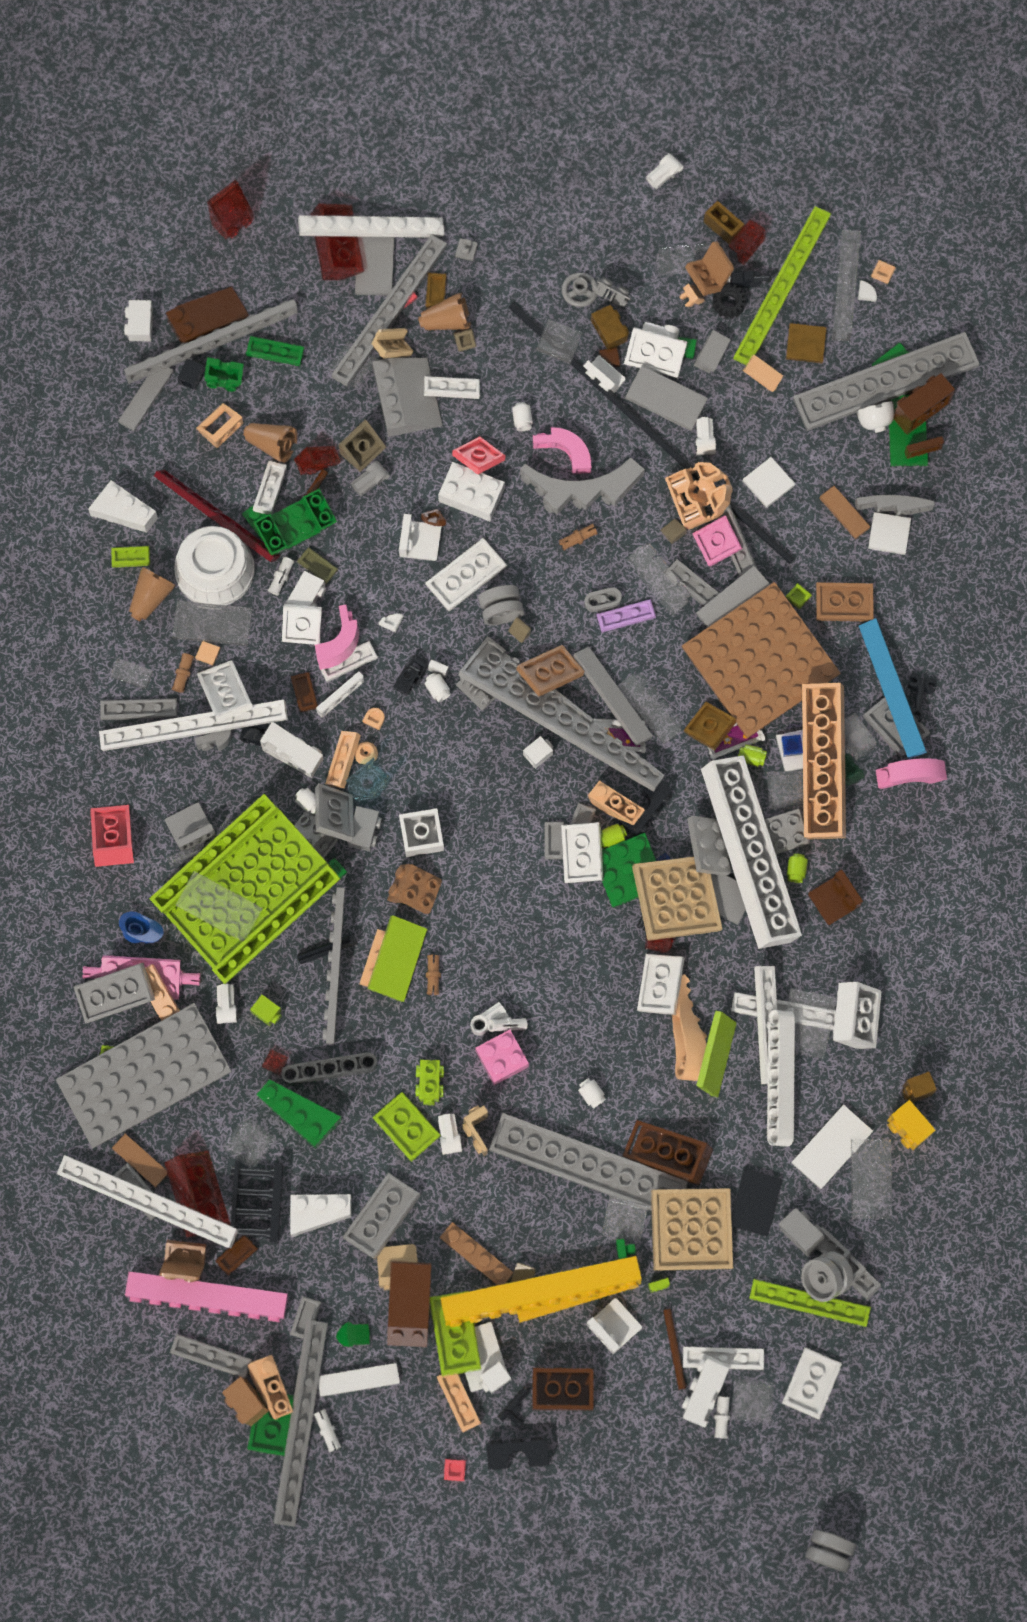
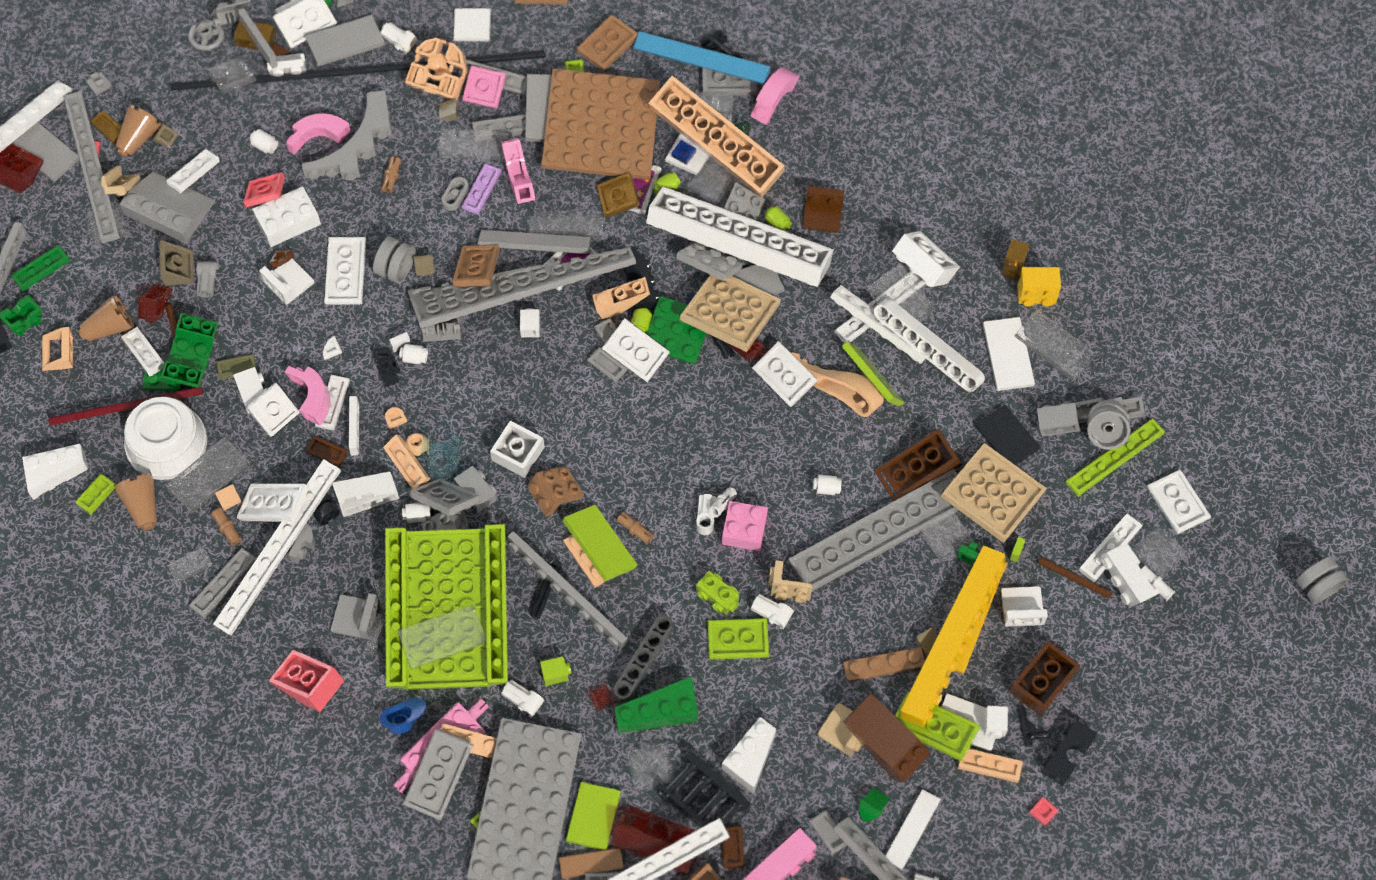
camera: 50 degrees left, 10 degrees down
(178, 1132) = (593, 816): none -> lime tile
(281, 576) = (219, 397): white pin -> none
(381, 1216) = (794, 711): light grey tile -> none
(601, 334) = (257, 38): none -> light grey tile
(661, 633) = (517, 171): none -> bright pink arch

